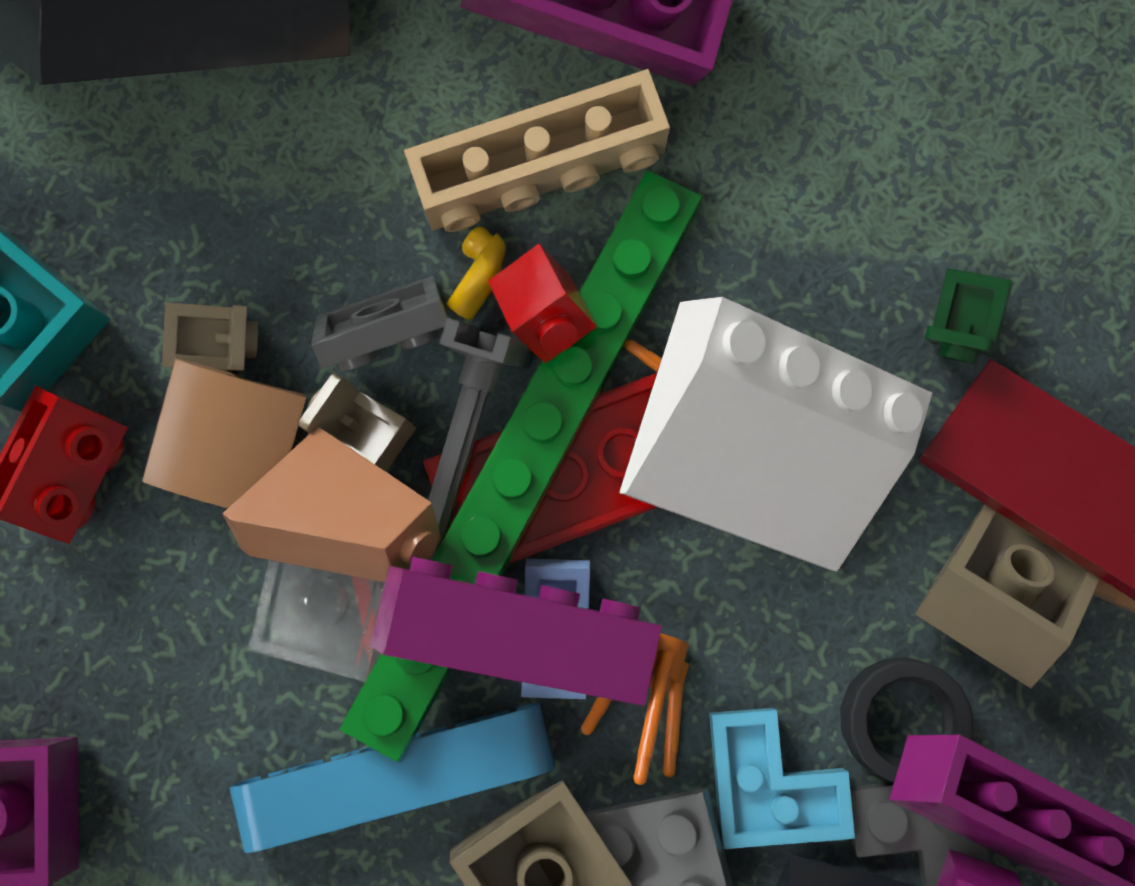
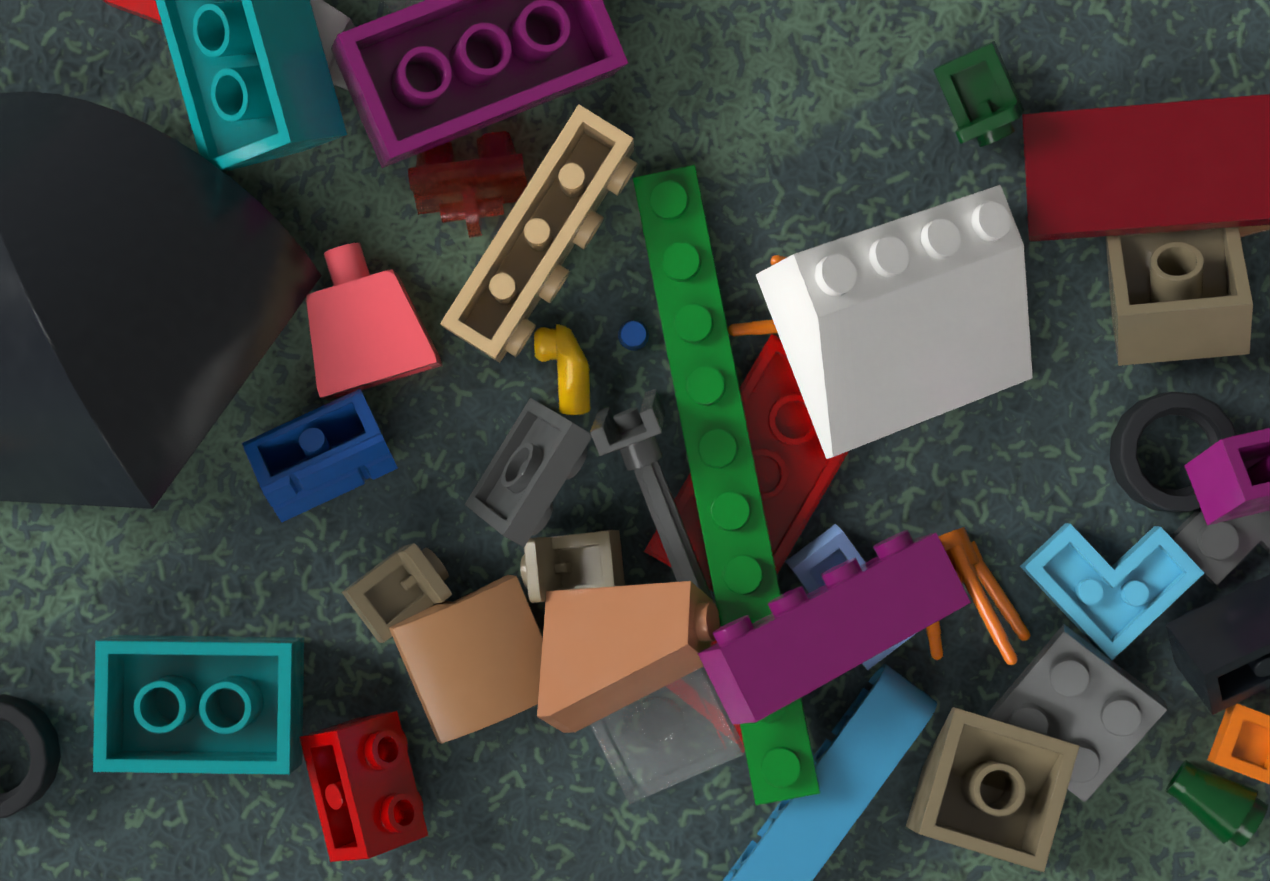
camera: 40 degrees left, 5 degrees up
(232, 184) = (319, 455): none -> blue brick
(348, 120) = (364, 328): none -> coral torso
(512, 74) = (469, 187): none -> clear red hips
(542, 304) = (644, 357): red brick -> none

